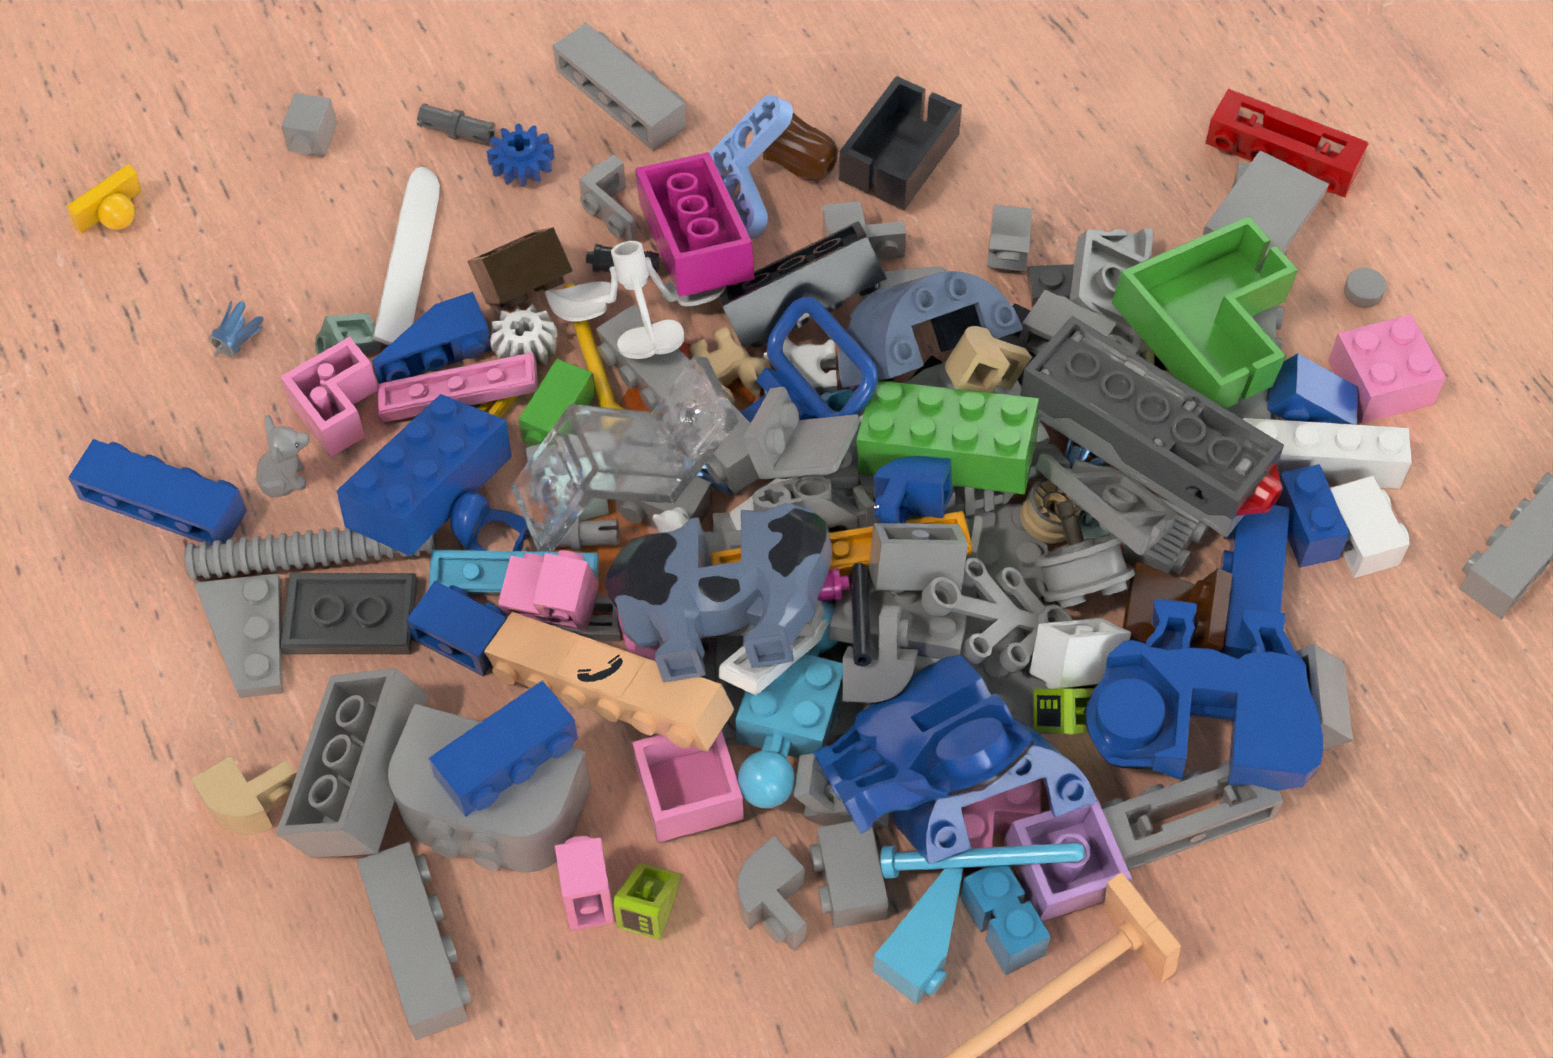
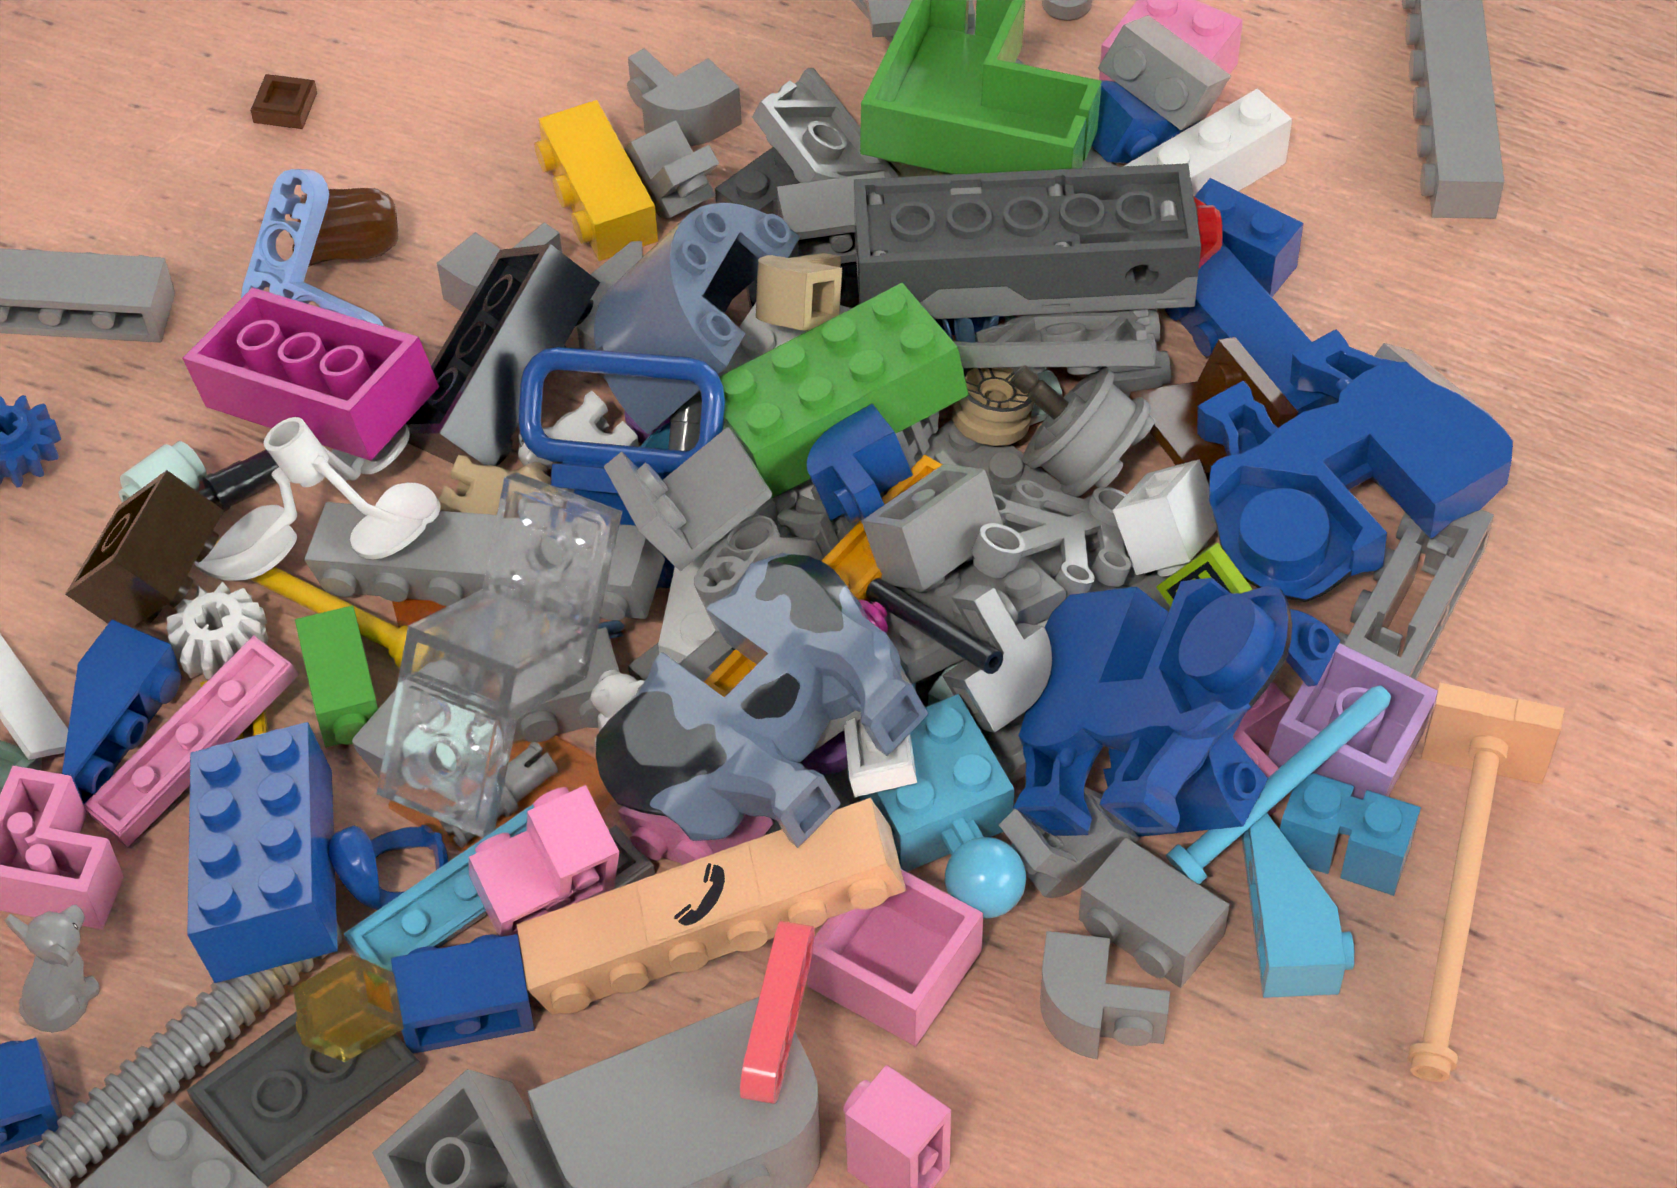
camera: 40 degrees left, 5 degrees down
(388, 590) = (347, 1008): none -> clear yellow brick
(504, 749) = (695, 1052): blue brick -> none
(565, 762) = (777, 1012): none -> coral beam
(577, 230) = (177, 459): none -> light aqua brick
(597, 190) = (150, 426): light grey bracket -> none
(646, 900) = (981, 1111): lime slope -> none
(844, 51) = (283, 101): none -> reddish brown tile
(895, 146) = (459, 161): black piece -> none
(963, 215) = (595, 180): none -> yellow brick
(1060, 205) = (699, 99): none -> light grey brick
(1351, 377) = (1164, 72): none -> light grey brick
(1375, 535) = (1326, 210): white brick -> none

